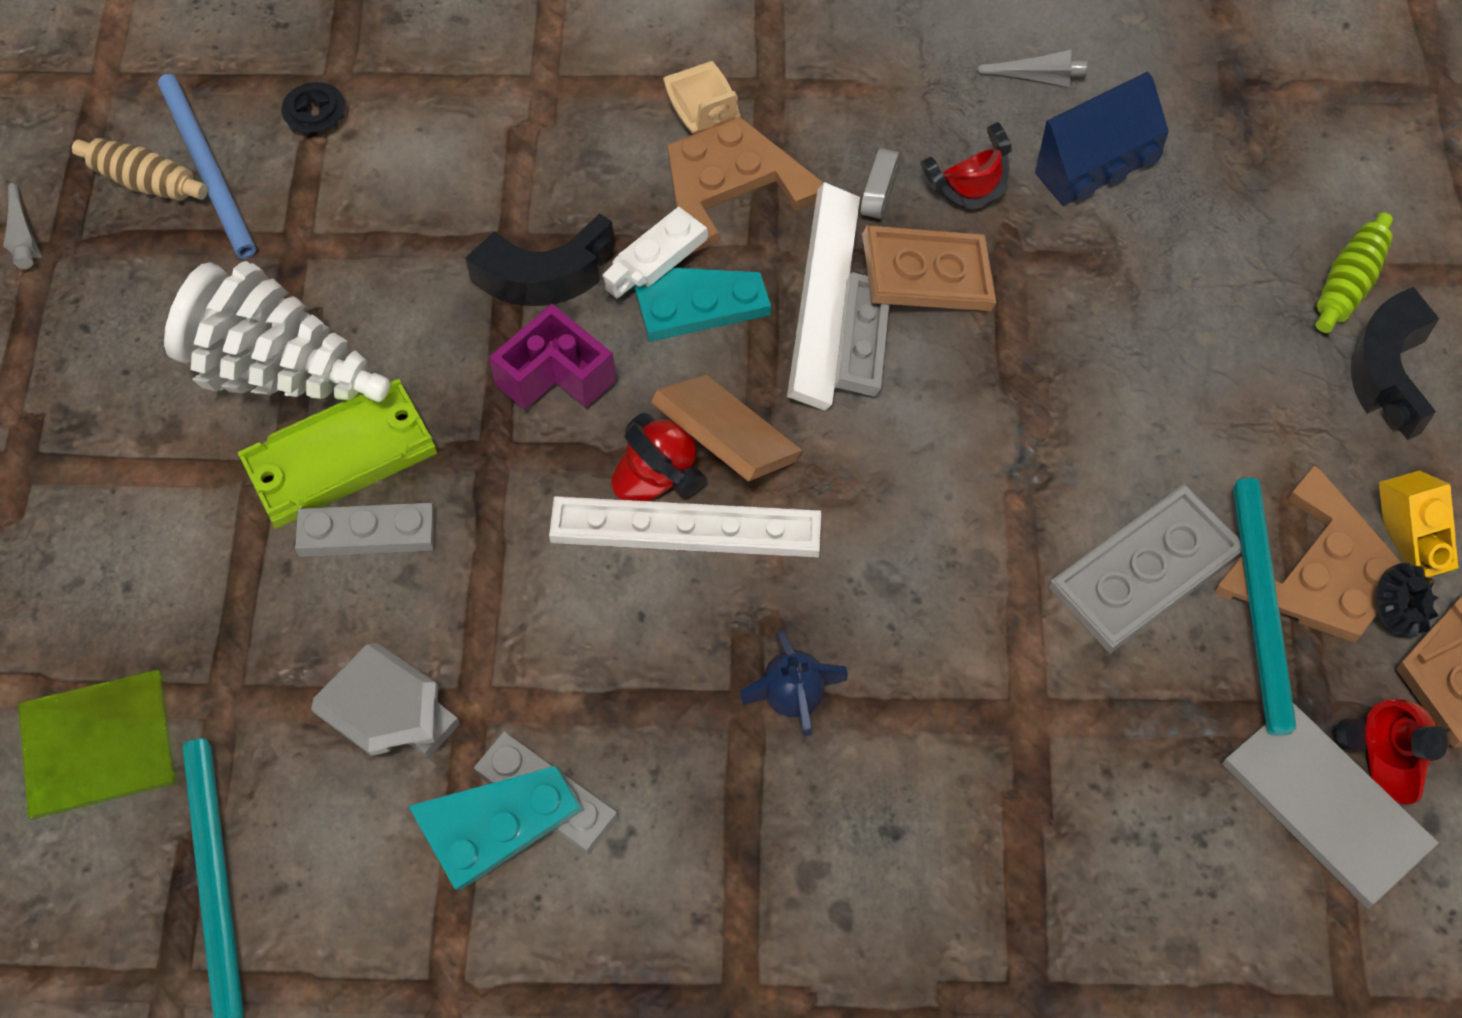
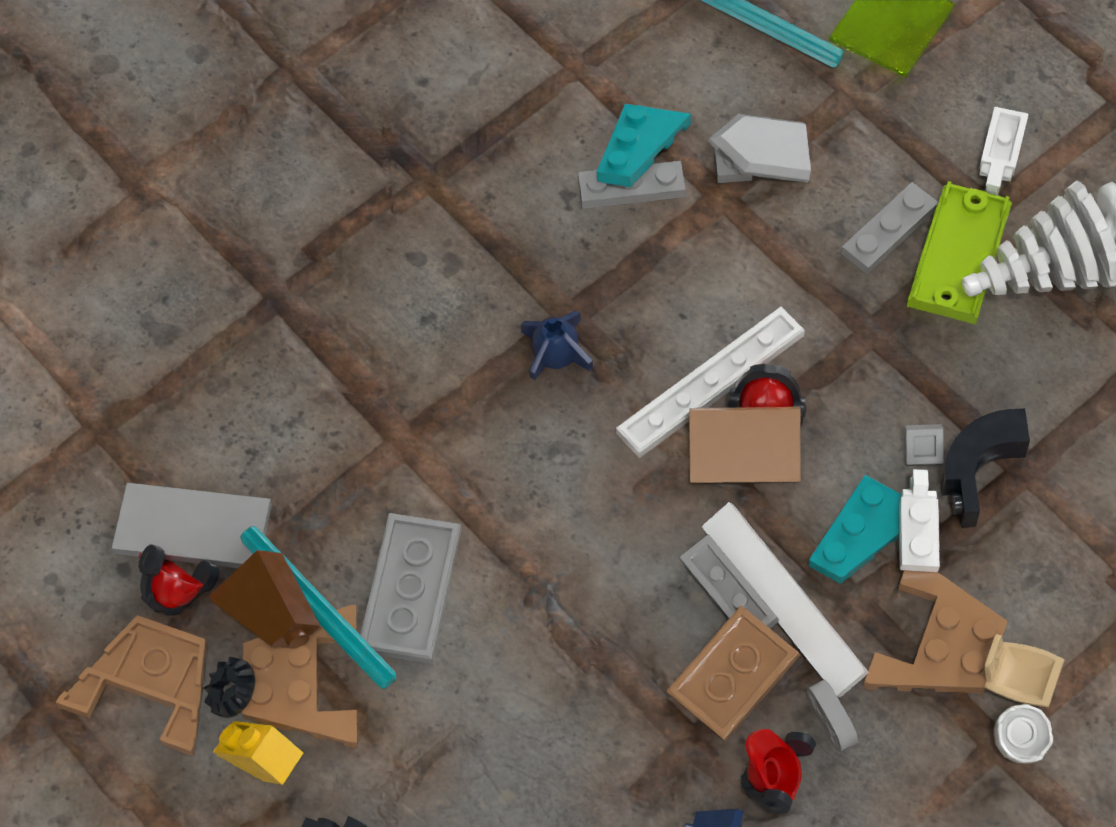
camera: 140 degrees right, 0 degrees up
(180, 508) = (1002, 147): none -> white hinge
(552, 352) = (892, 402): magenta brick -> none
(576, 310) = (924, 444): none -> light grey plate
(754, 63) = (1023, 734): none -> white hair
(1322, 628) = (267, 600): none -> reddish brown slope

